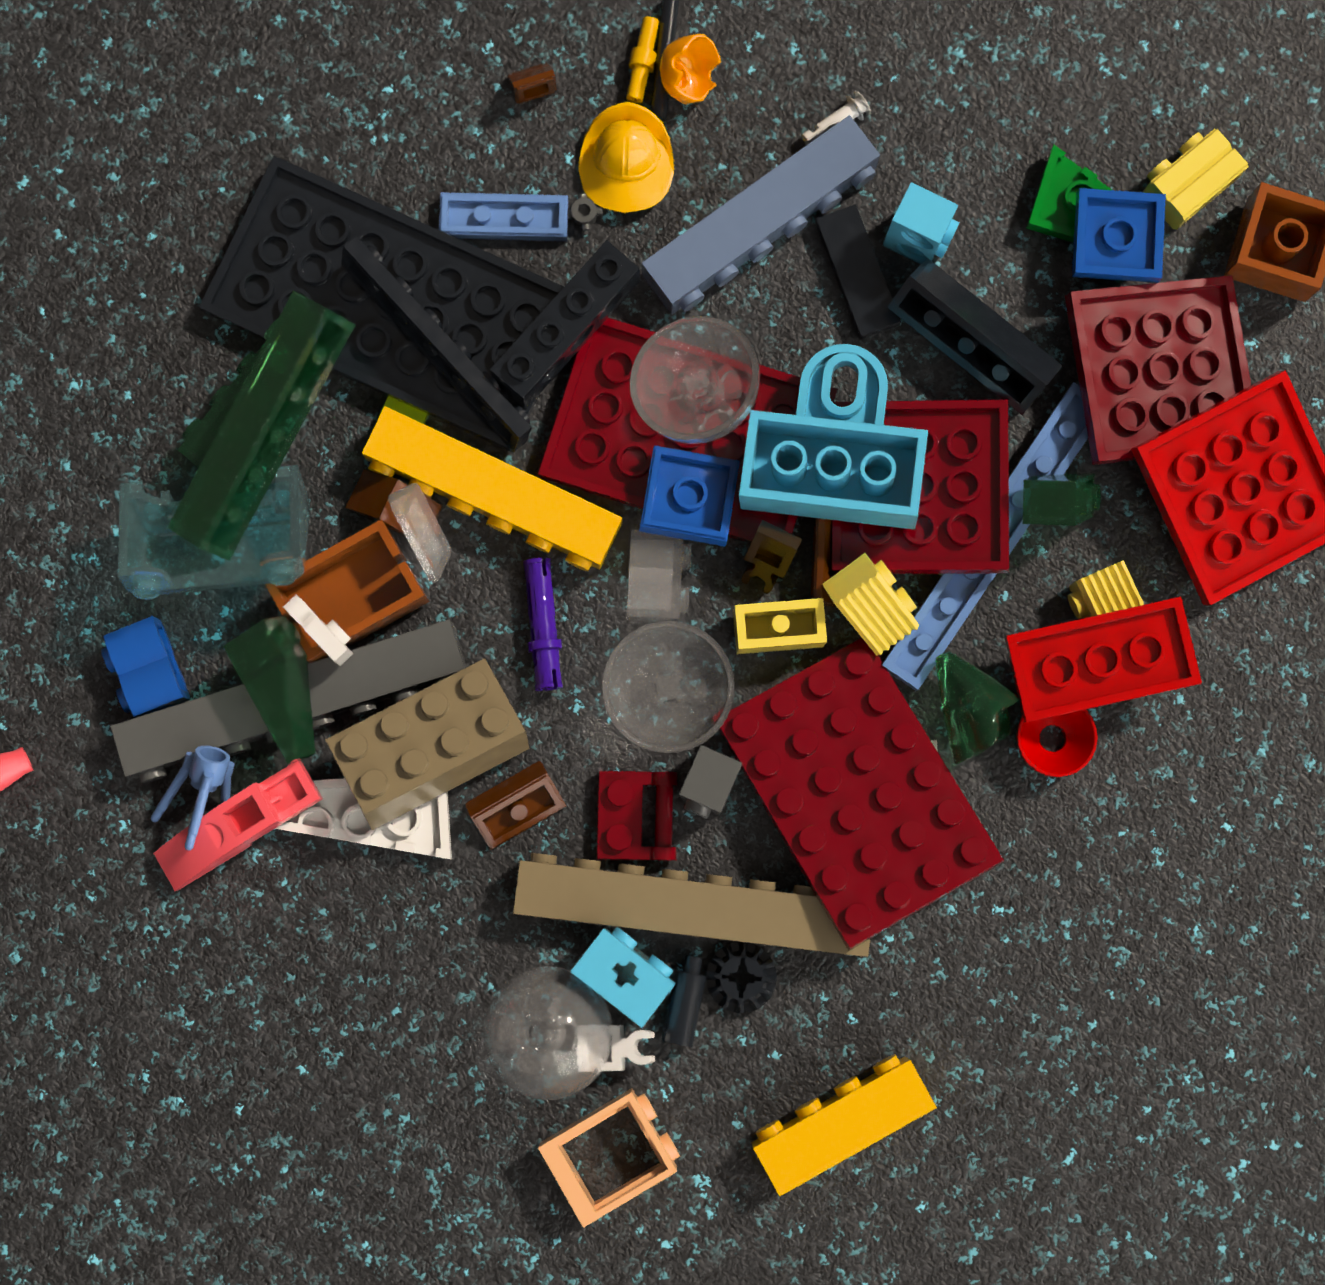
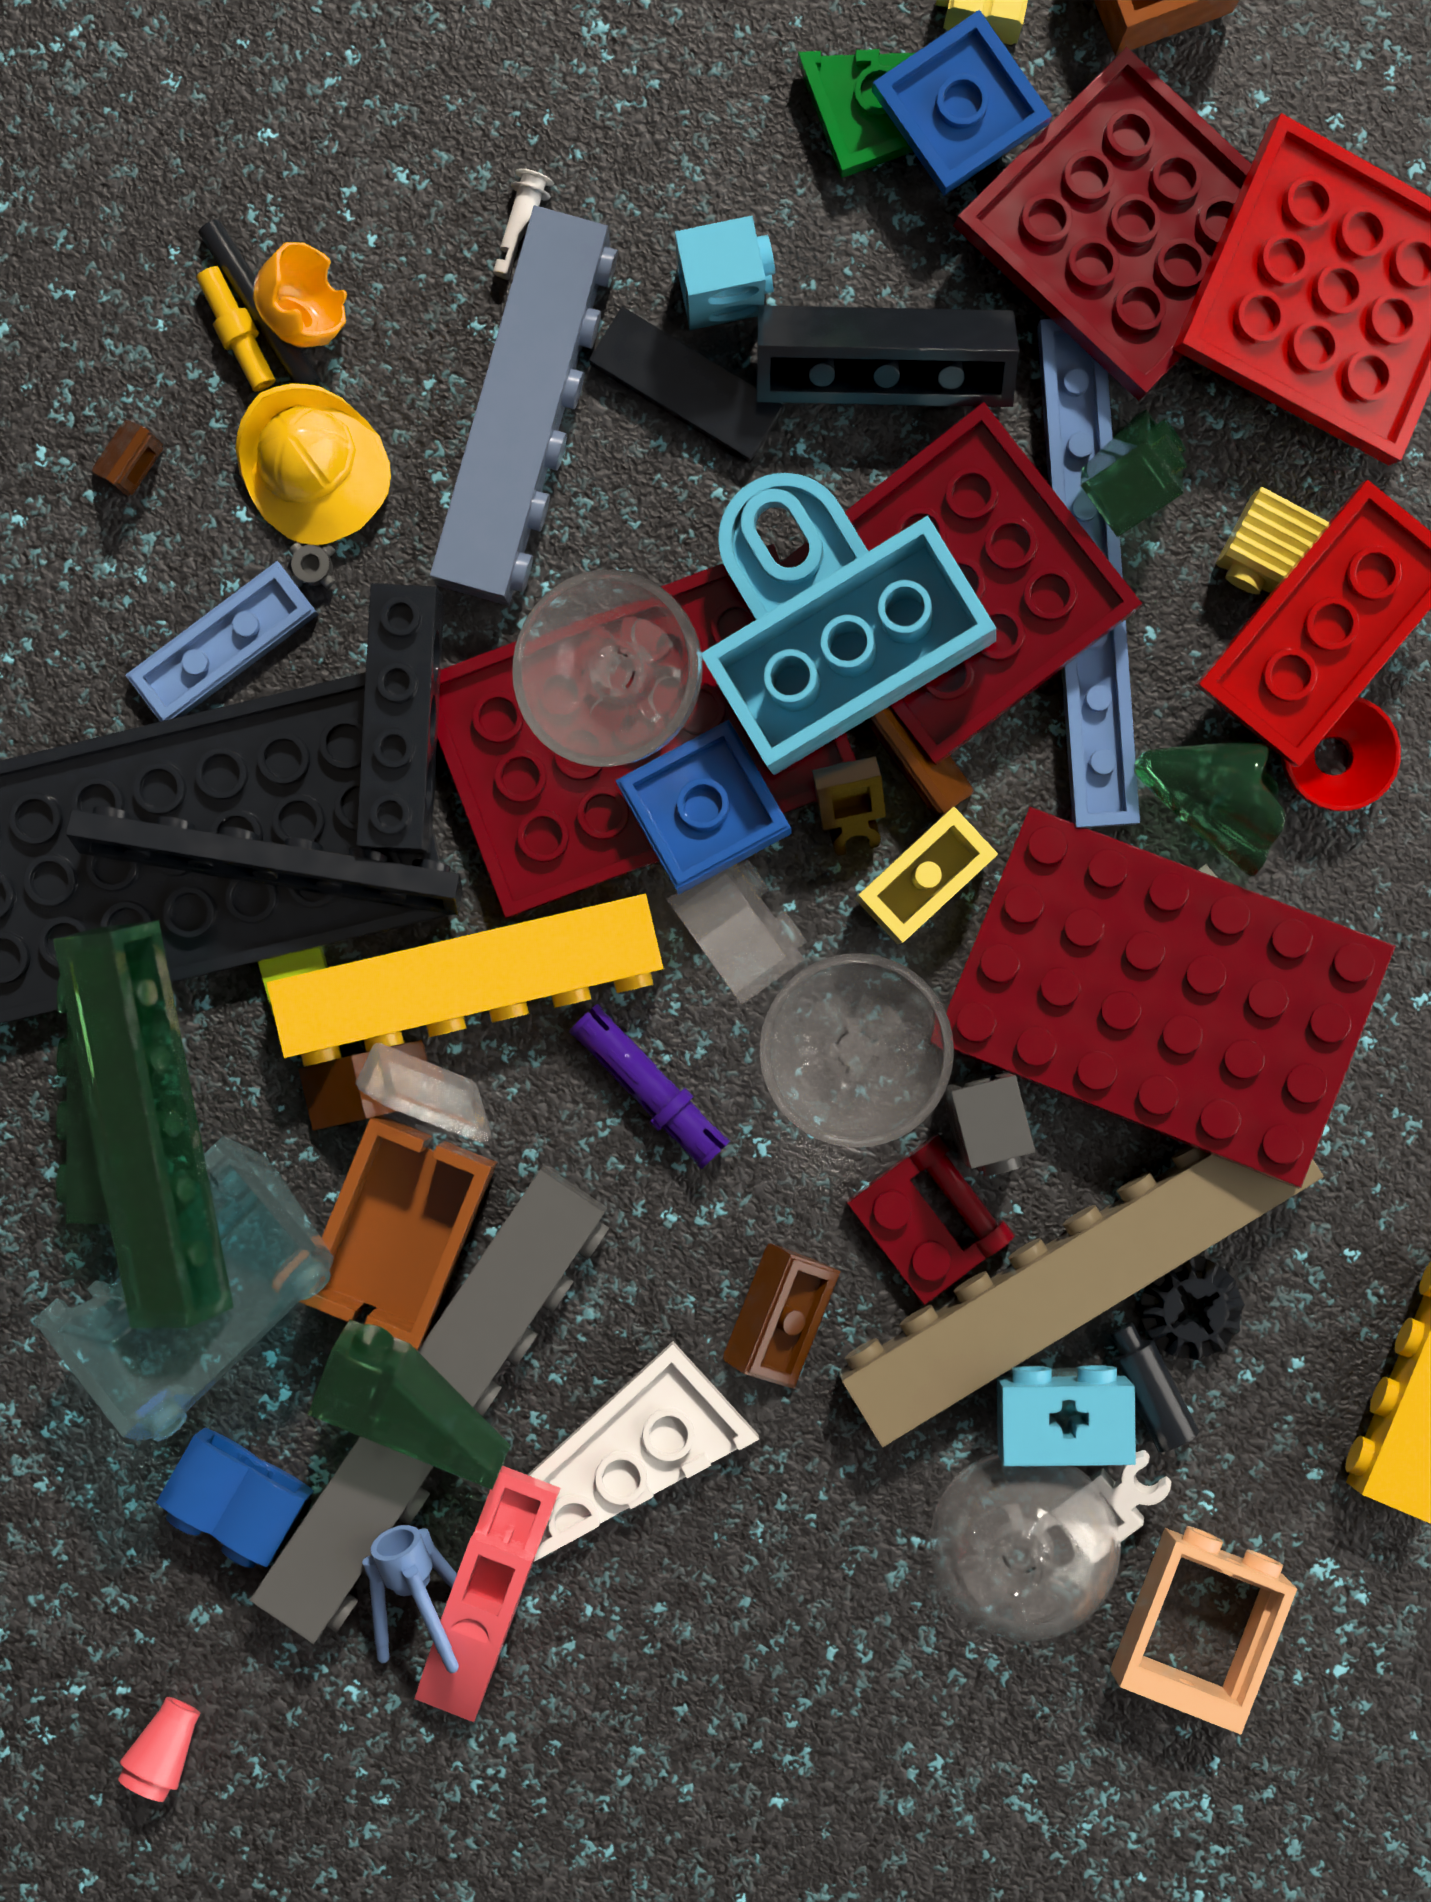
camera: 35 degrees left, 5 degrees up
(328, 637) = (422, 1307): white plate -> none
(428, 743) = (630, 1333): dark tan brick -> none
(871, 604) = (1013, 767): light yellow brick -> none

